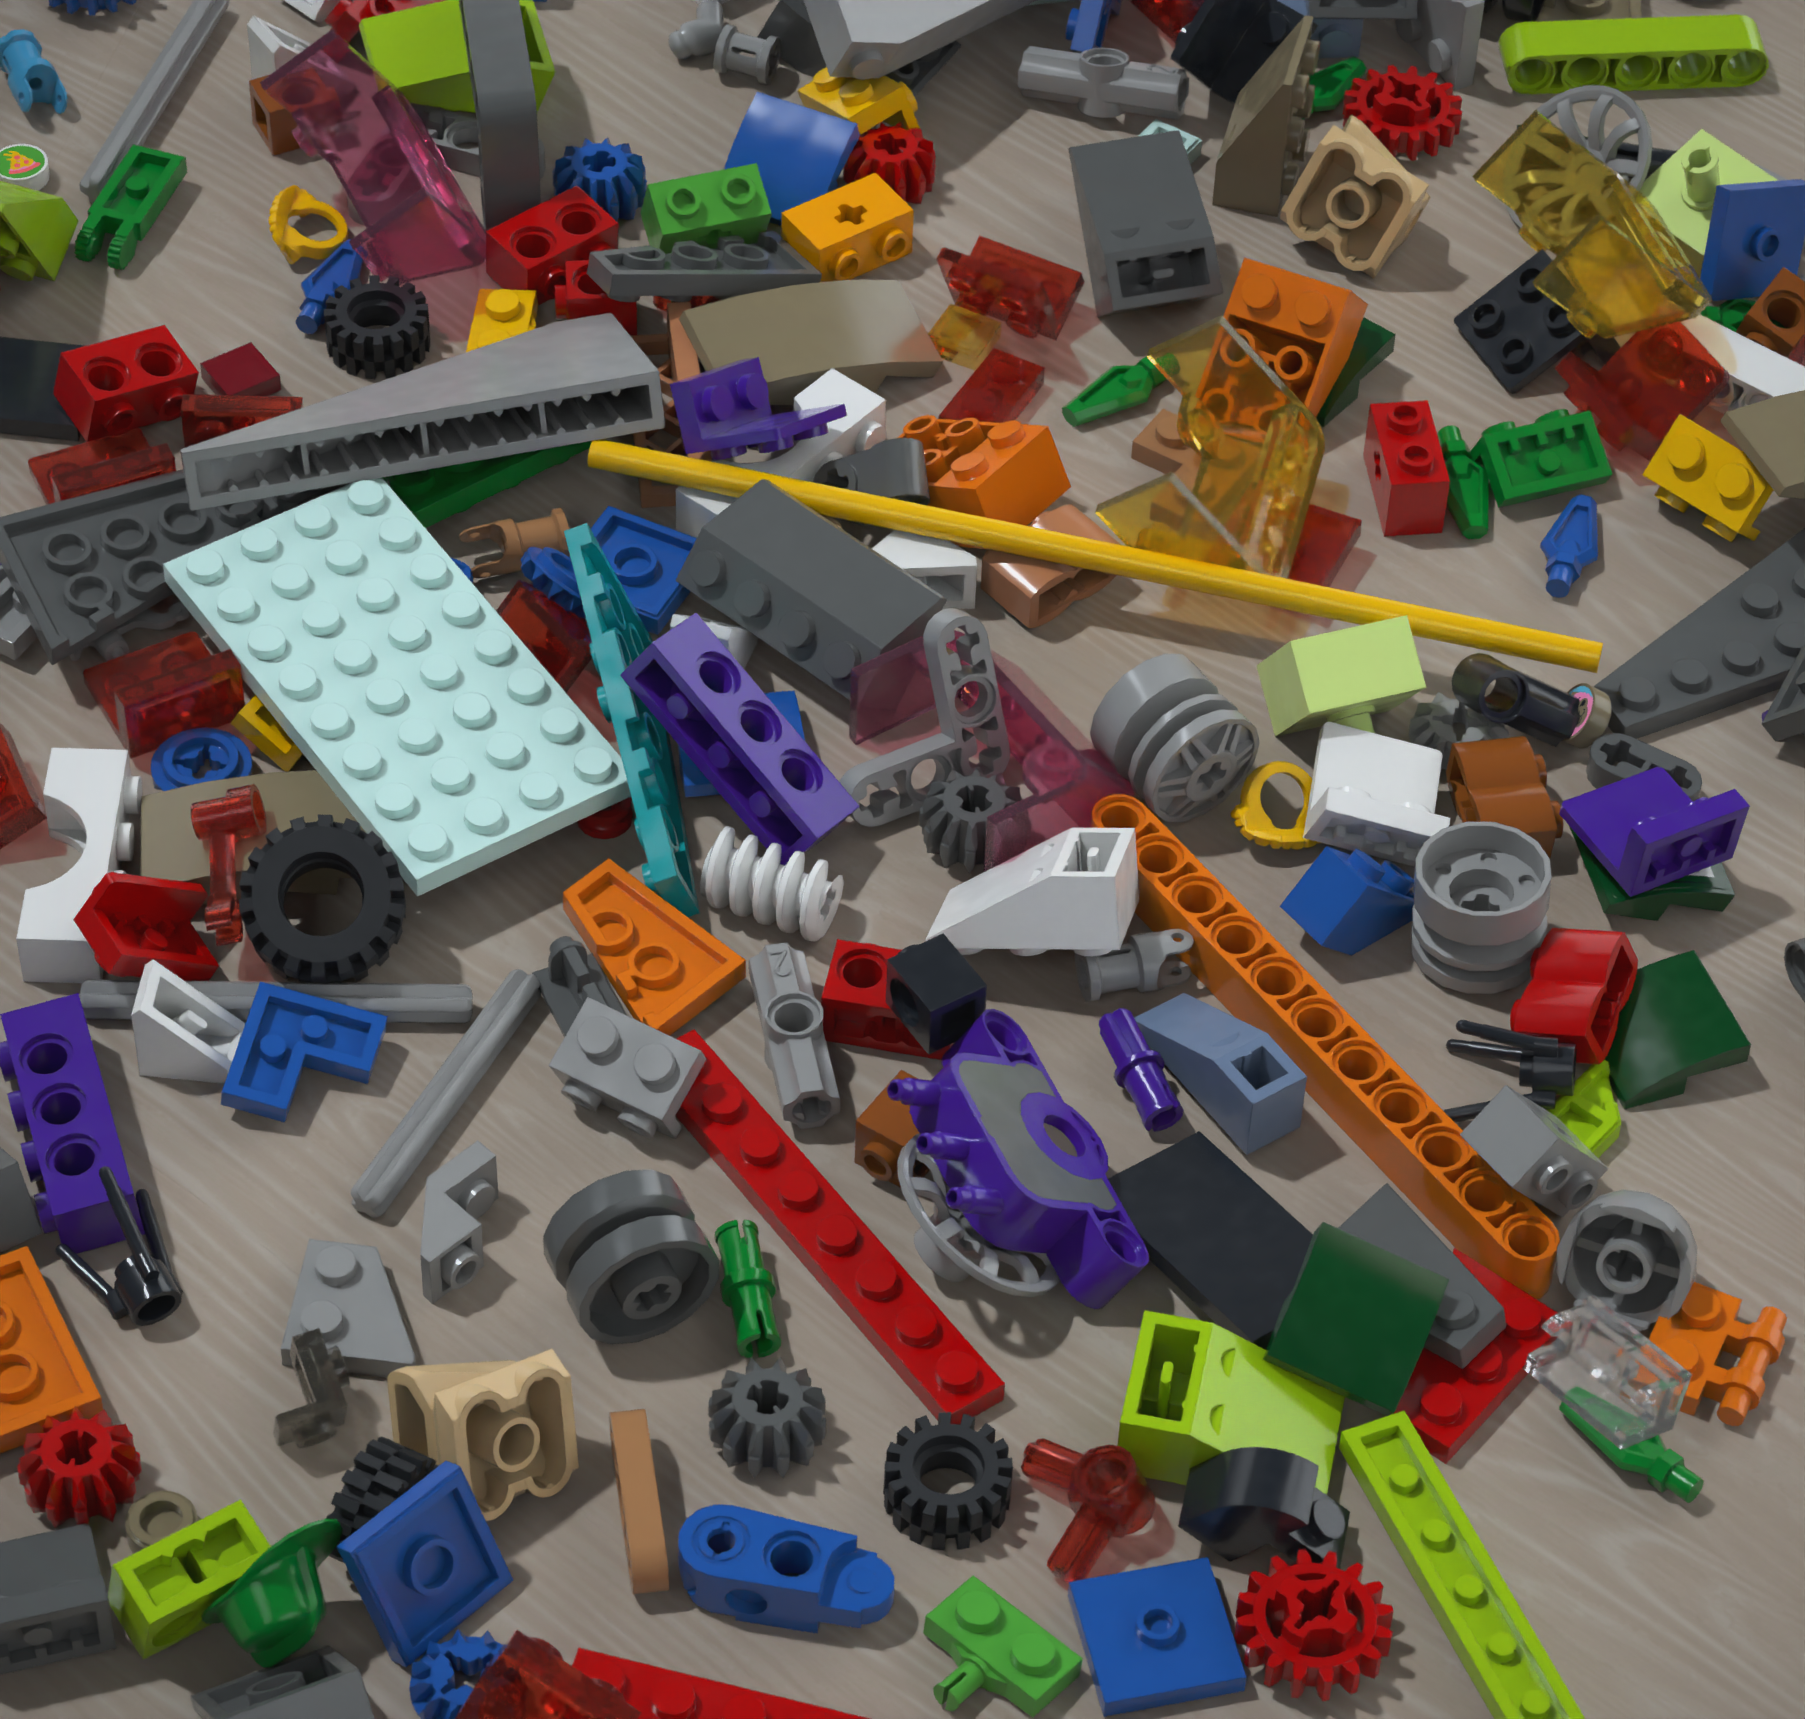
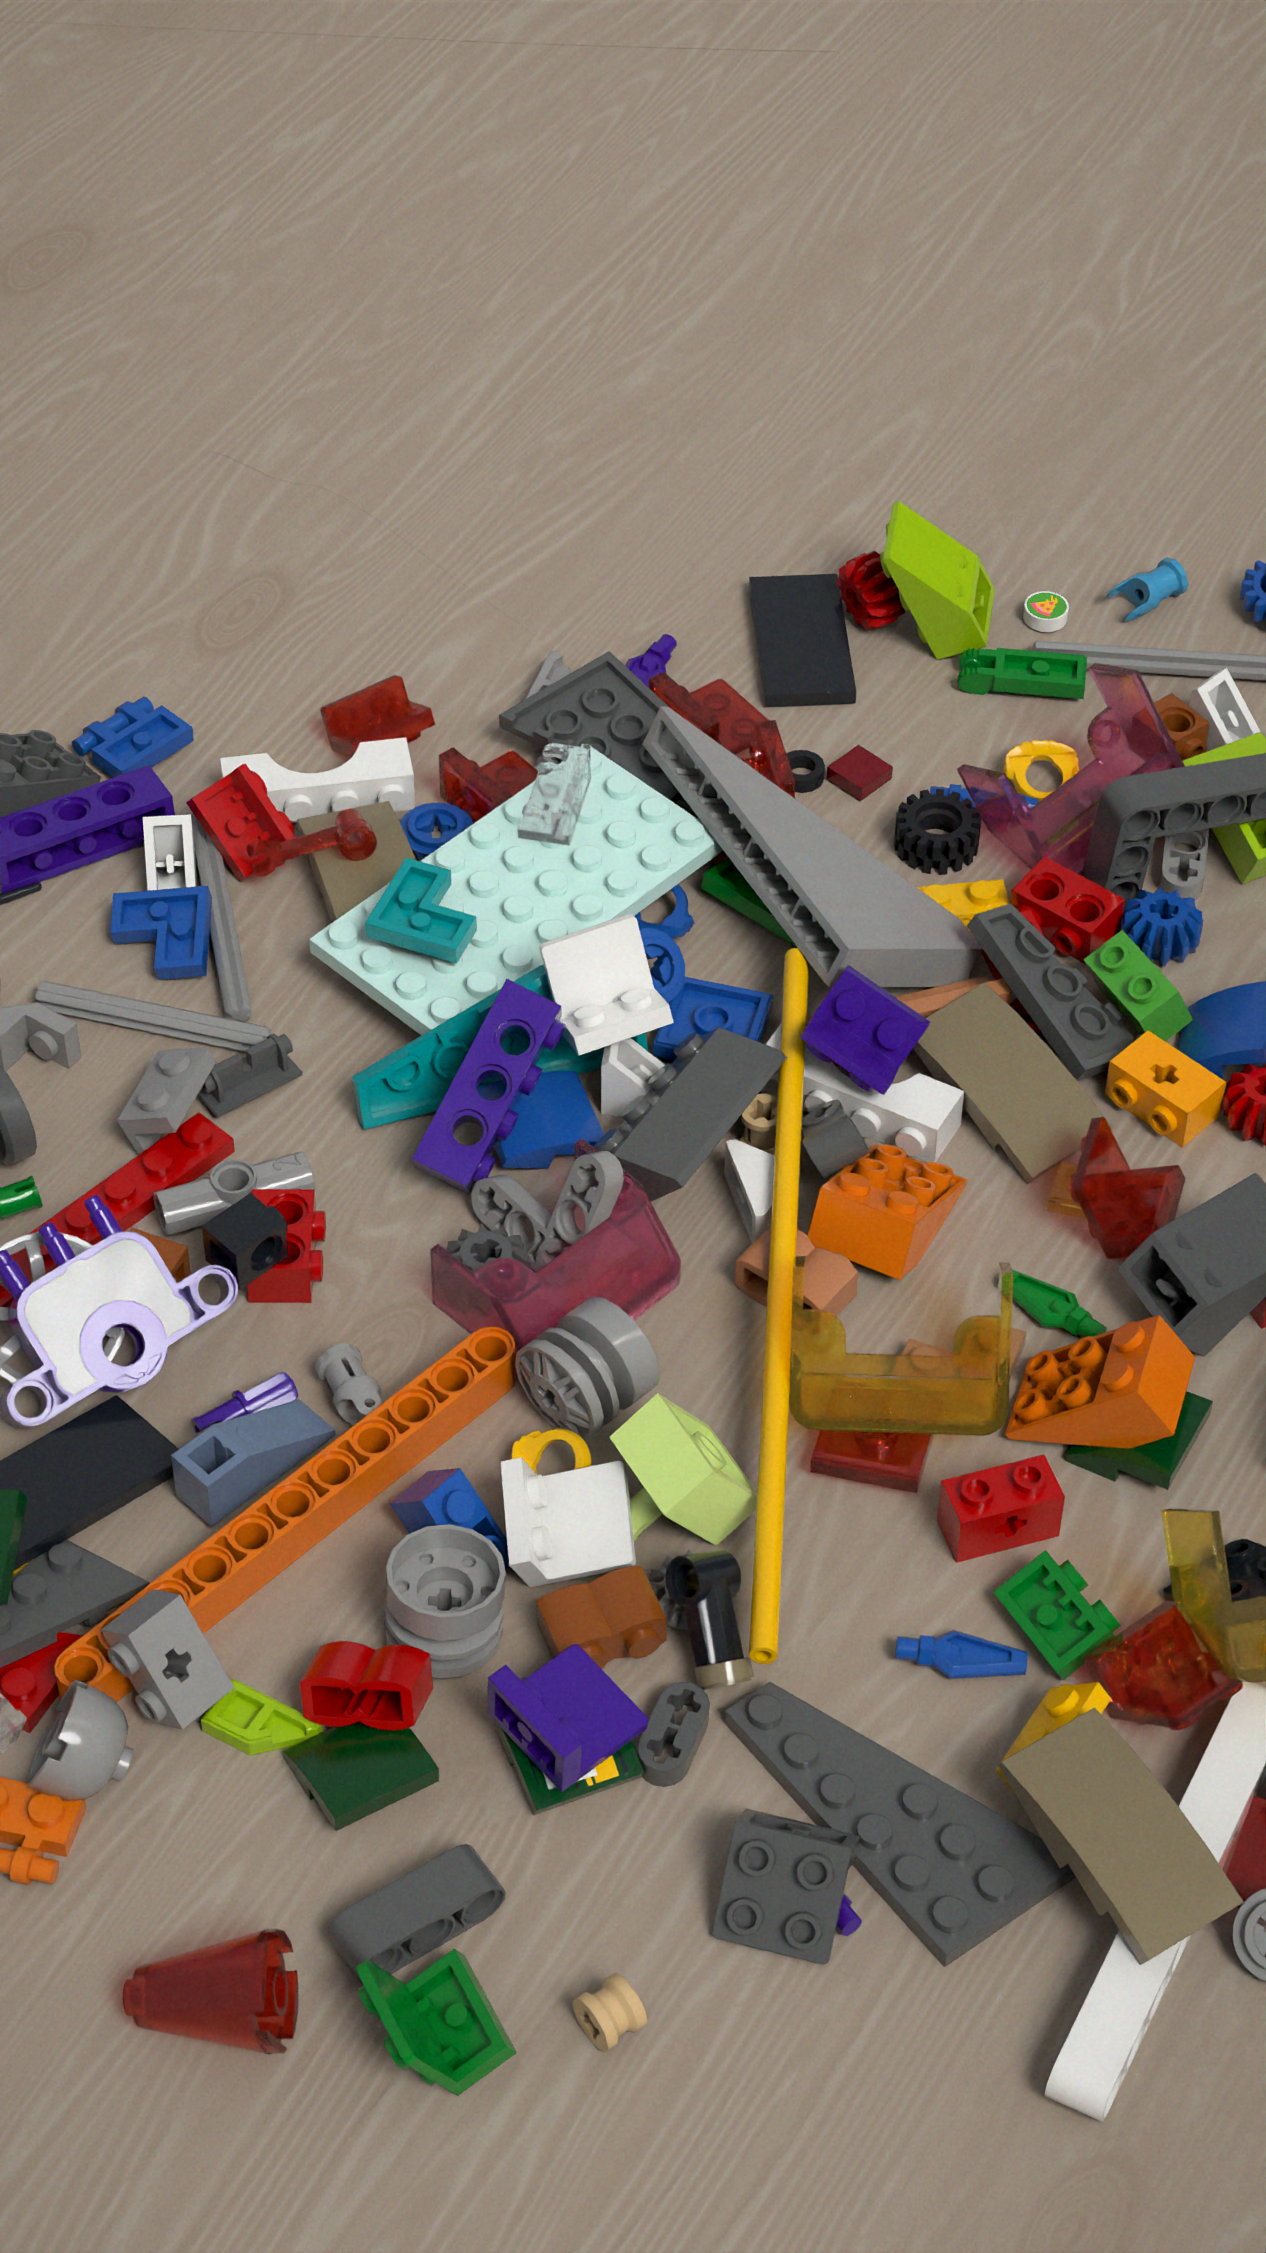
camera: 80 degrees right, 0 degrees up
(124, 382) = (810, 697): red brick -> none
(280, 584) = (557, 795): none -> clear hinge
(310, 848) = (280, 896): black tyre -> none
(445, 758) = (412, 917): none -> teal plate
(516, 539) = (719, 955): medium nougat piece -> none
(649, 949) = (305, 1105): orange wing -> none
(653, 590) = (603, 984): none -> white bracket
(770, 888) = (381, 1153): white piece -> none
(996, 389) = (1004, 1220): clear red plate -> none
(1056, 895) = (380, 1313): white slope -> none
(1468, 484) = (1001, 1564): green piece -> none
(1543, 1062) = (281, 1668): black plant -> none

